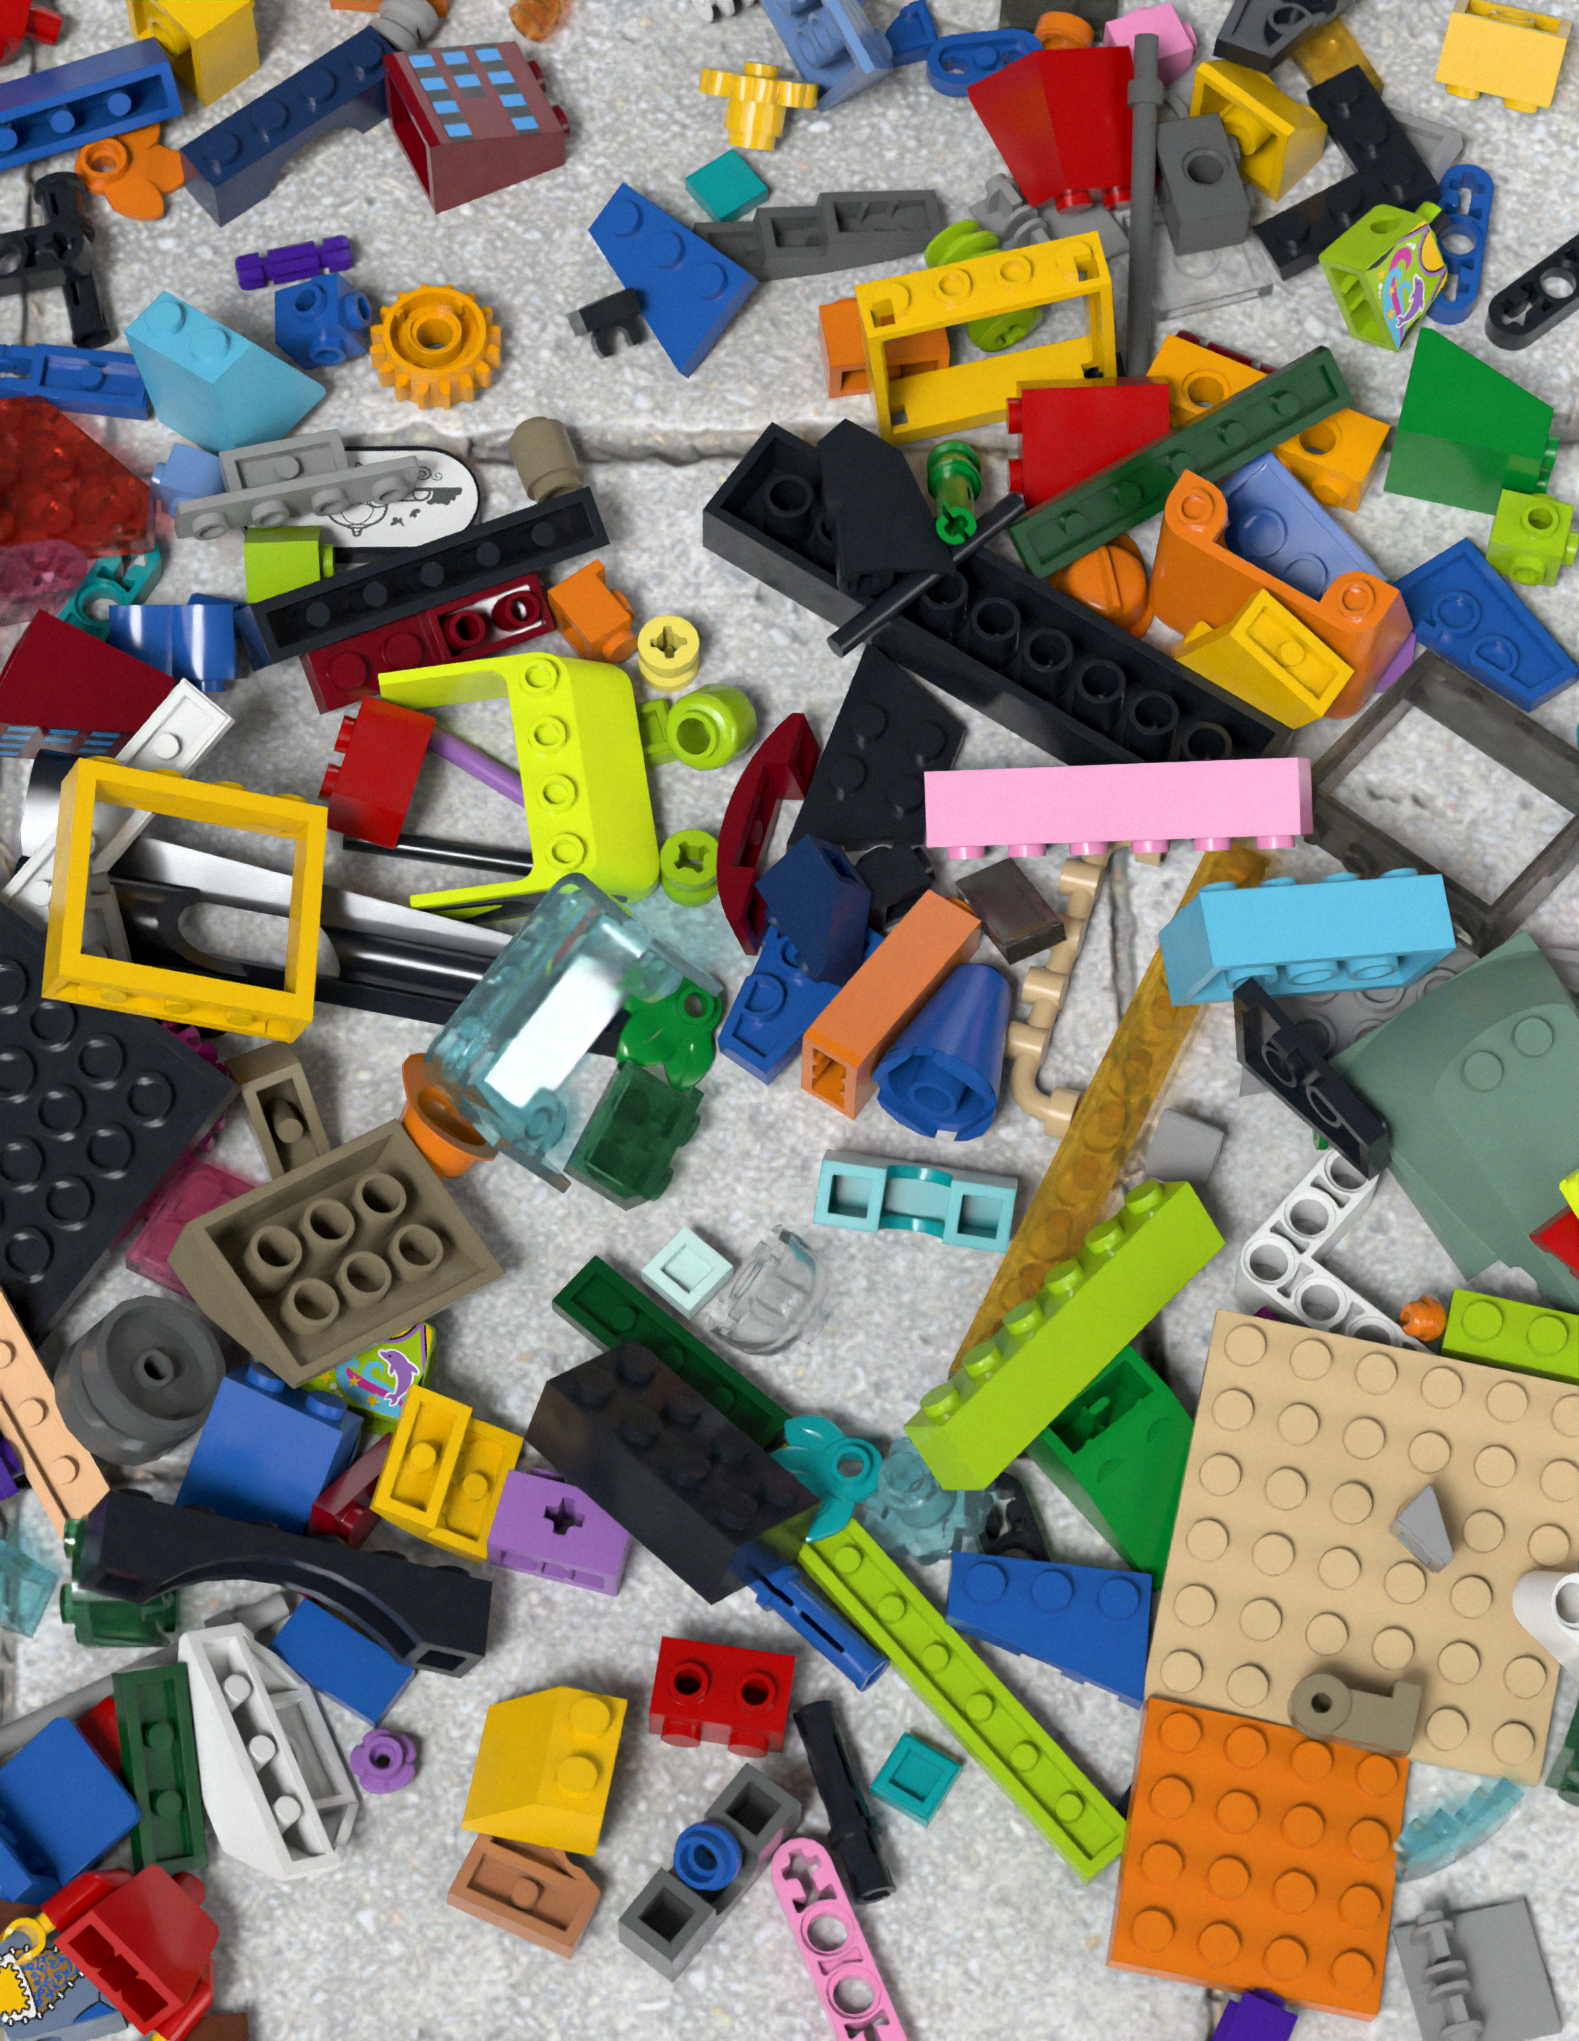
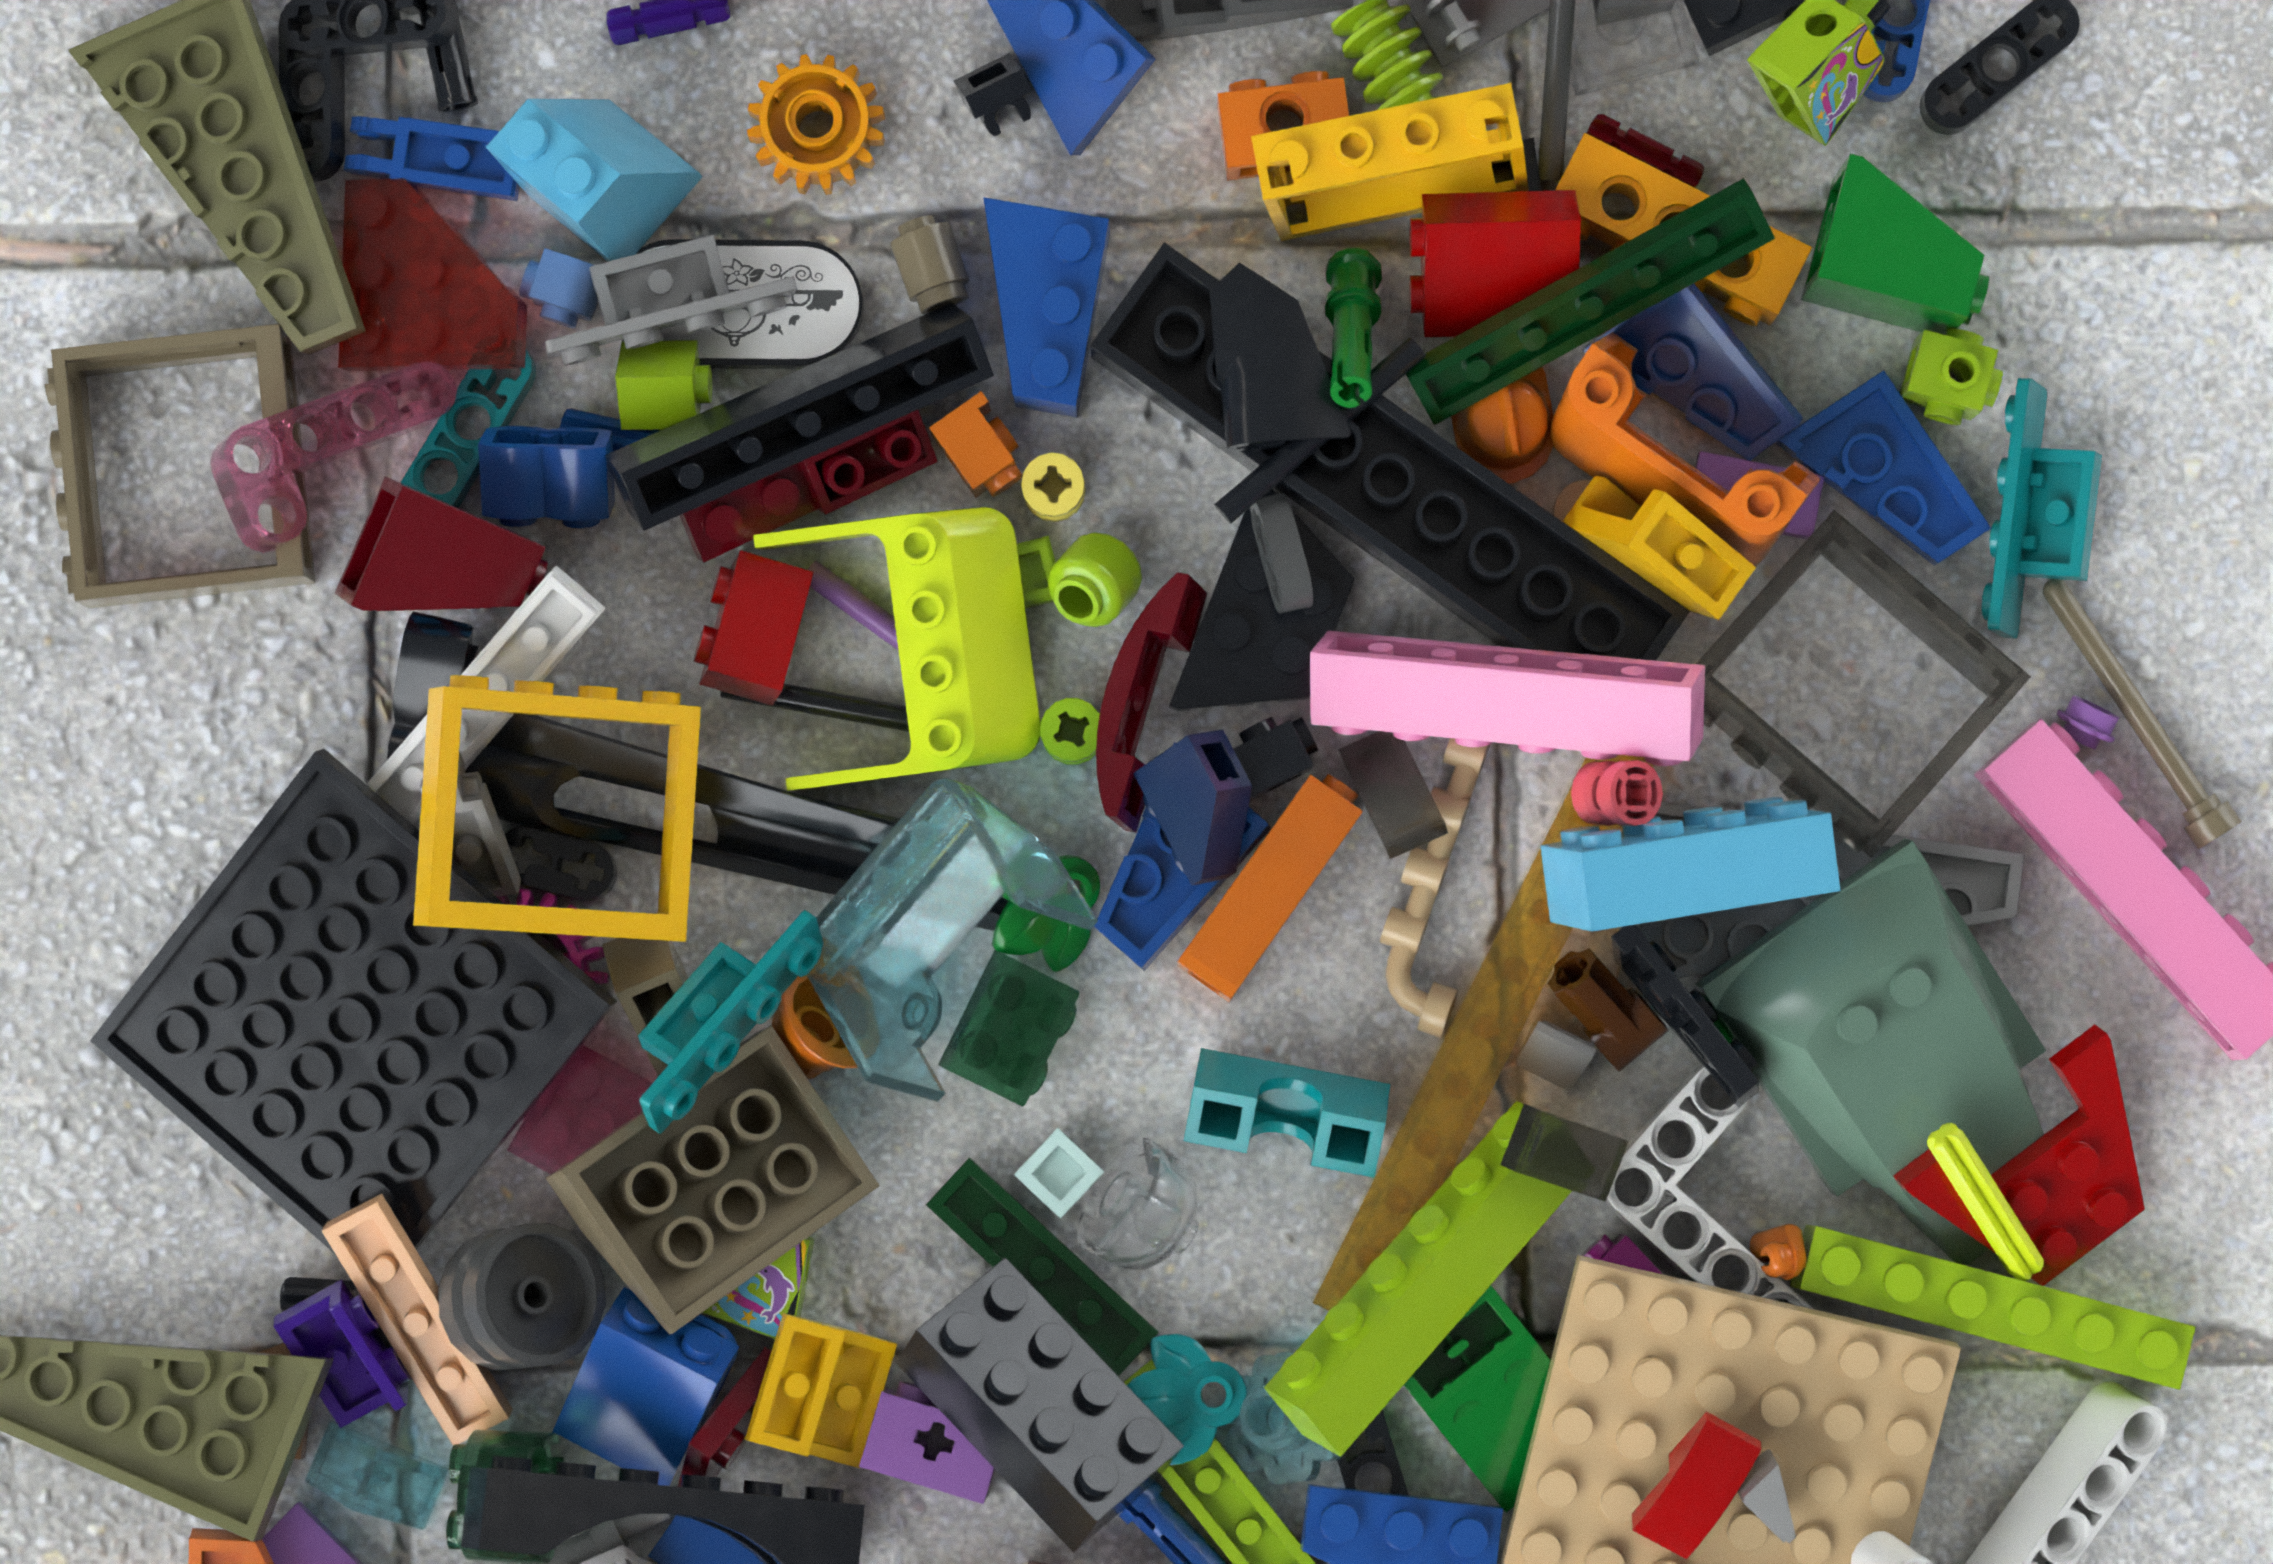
camera: 10 degrees right, 20 degrees up
(322, 321) = (697, 97): blue brick -> none
(347, 1096) = (715, 1012): none -> teal bracket
(660, 481) = (1048, 298): none -> blue wedge
(893, 693) = (1282, 553): none -> dark grey beam
(950, 1057) = (1329, 948): blue cone -> none
(1197, 1213) = (1564, 1152): none -> clear smoke tile
(1233, 1101) = (1613, 1017): none -> reddish brown piece
(1237, 860) = (1617, 793): none -> coral wheel
(1349, 1520) = (1698, 1488): none -> red slope

